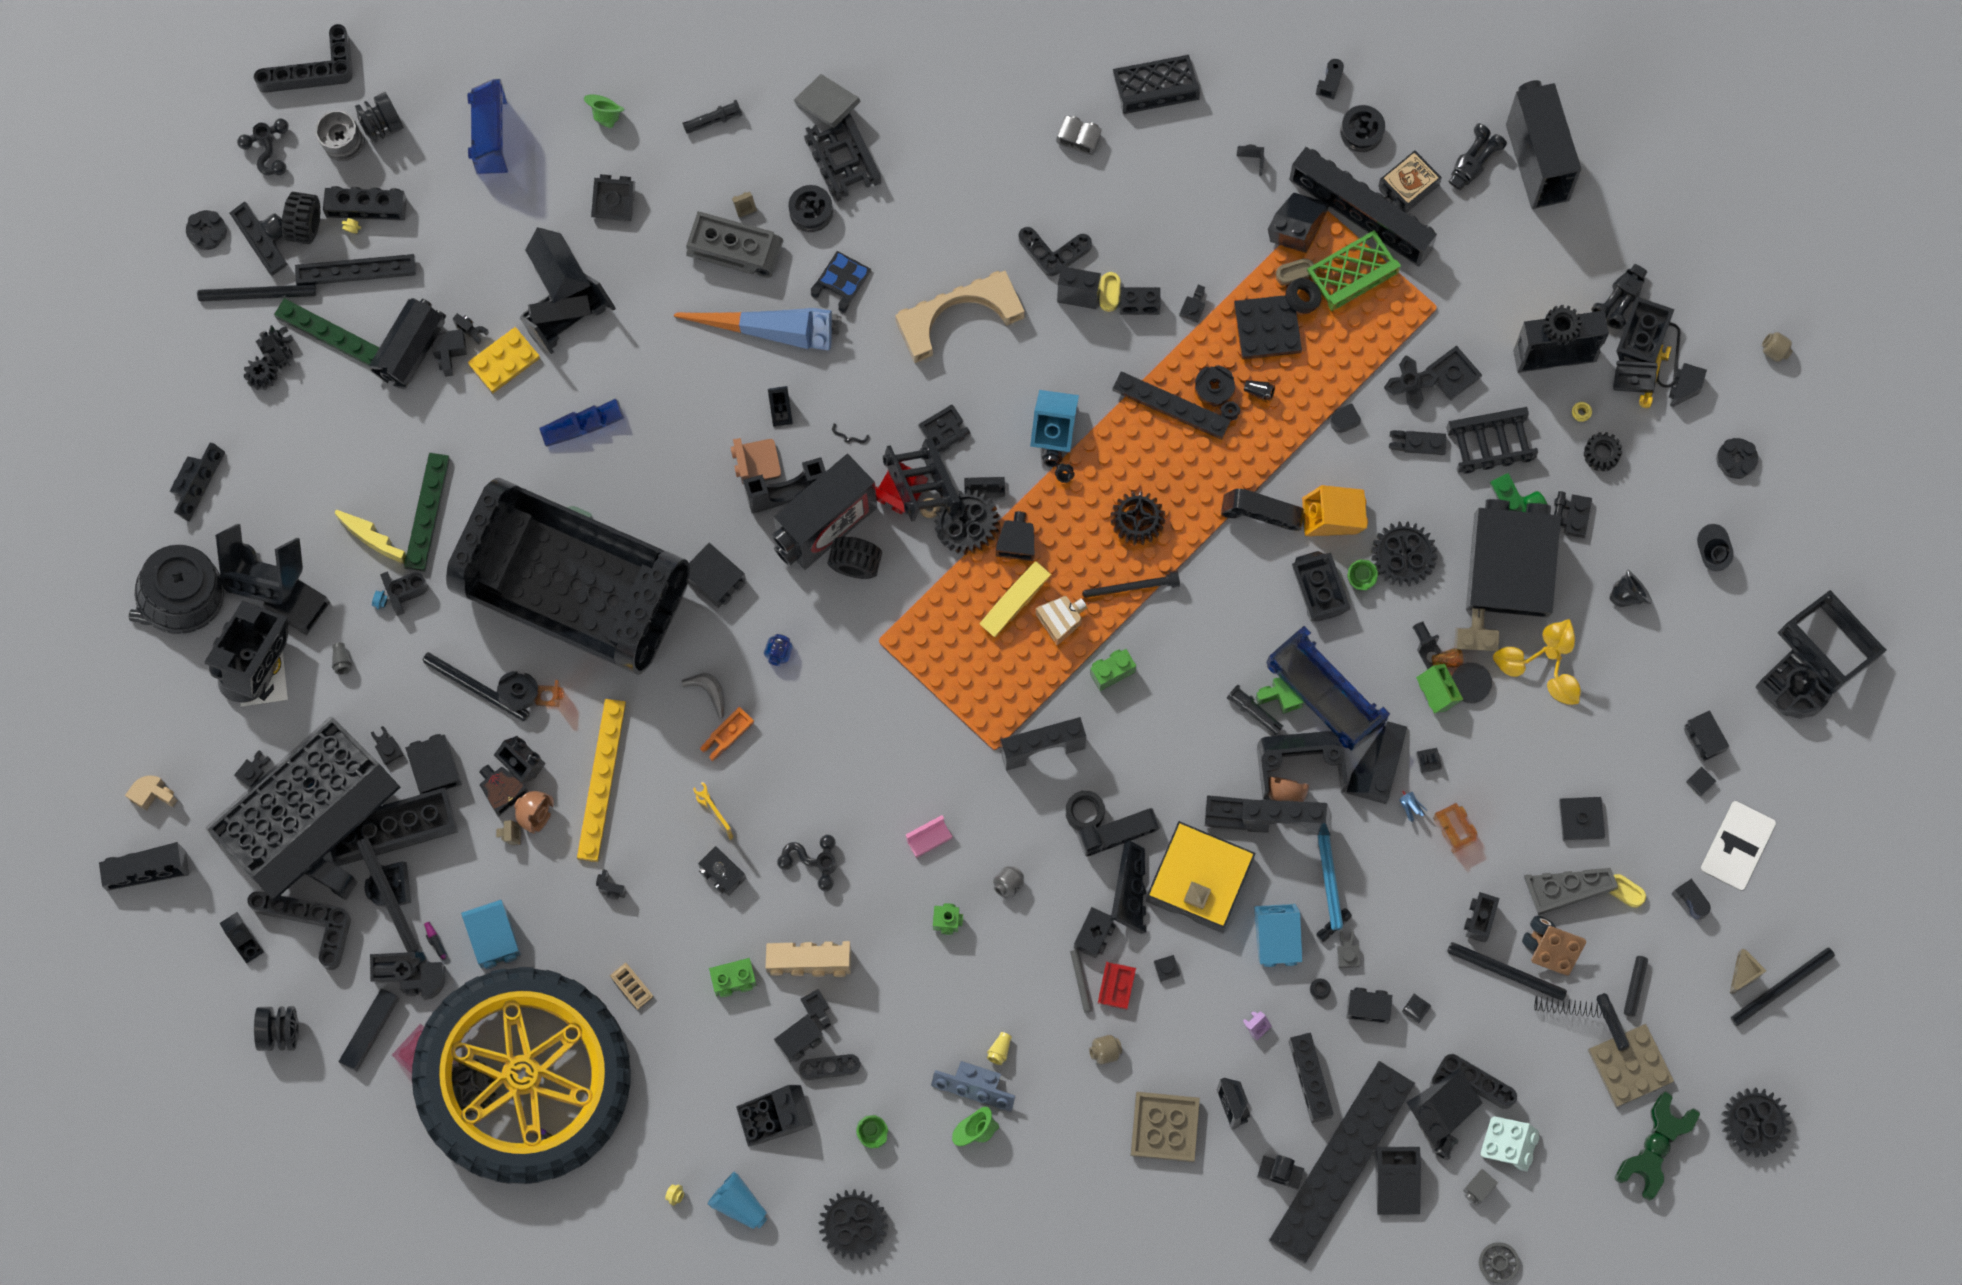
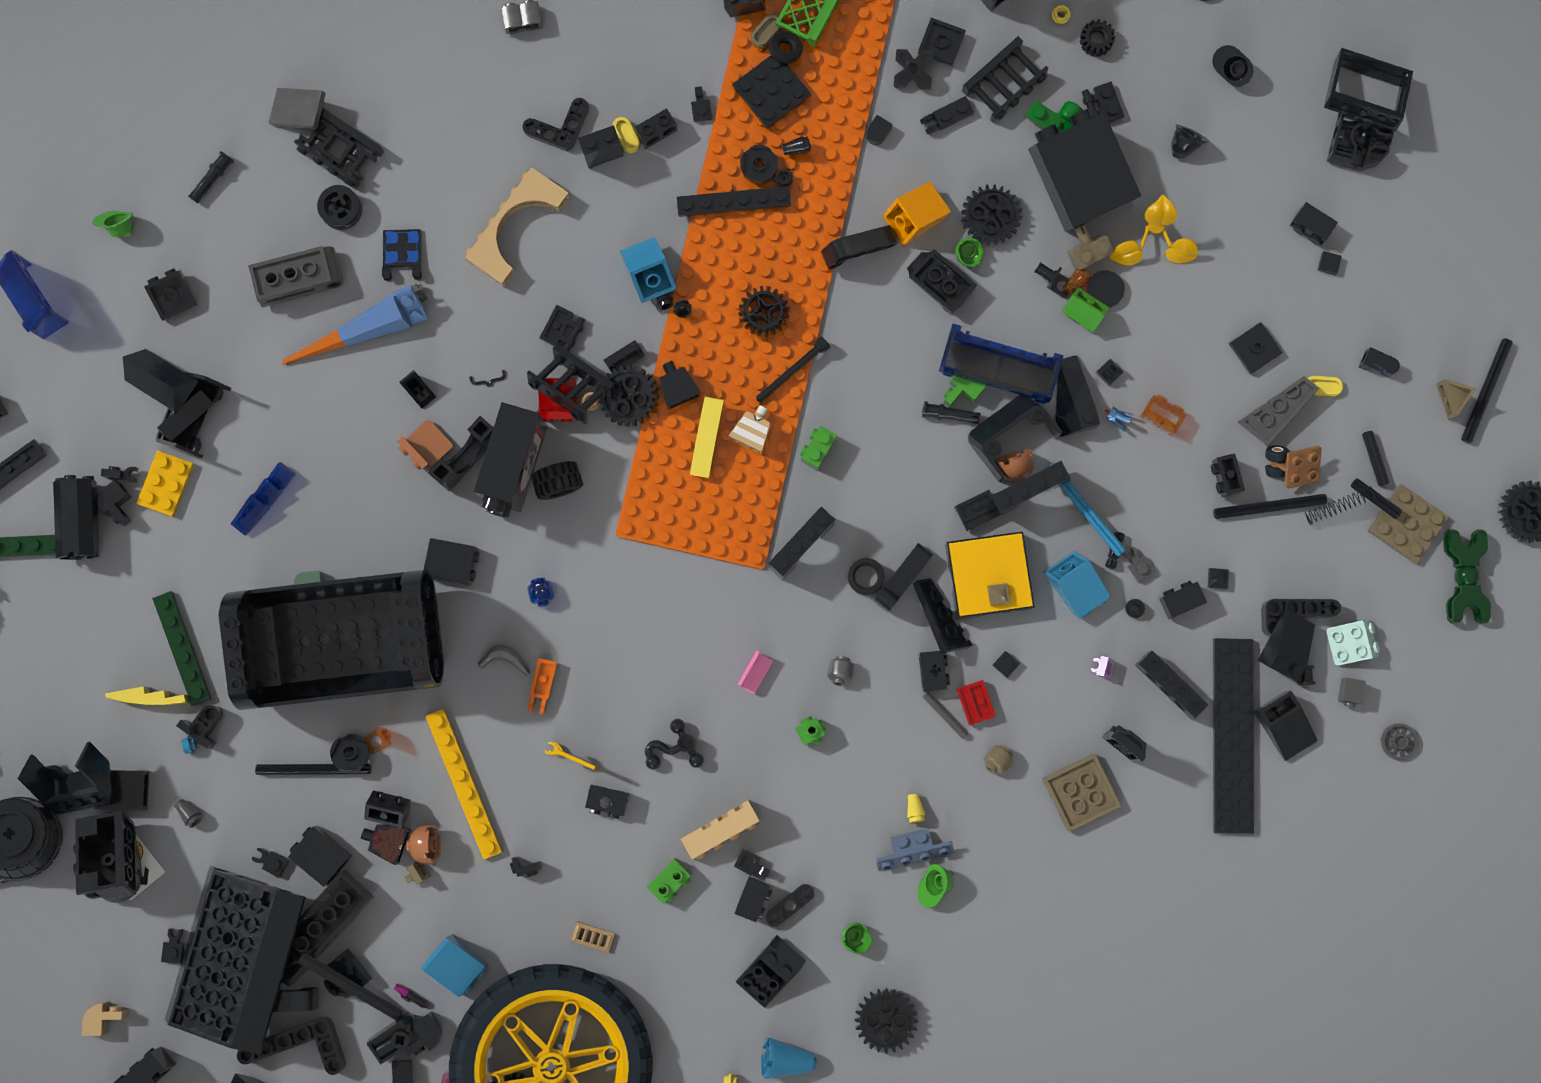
camera: 30 degrees left, 10 degrees up
(744, 204) = (282, 236): dark tan tile -> none
(1281, 1171) = (1191, 773): black tile -> none
(1738, 845) = (1386, 297): white sticker -> none

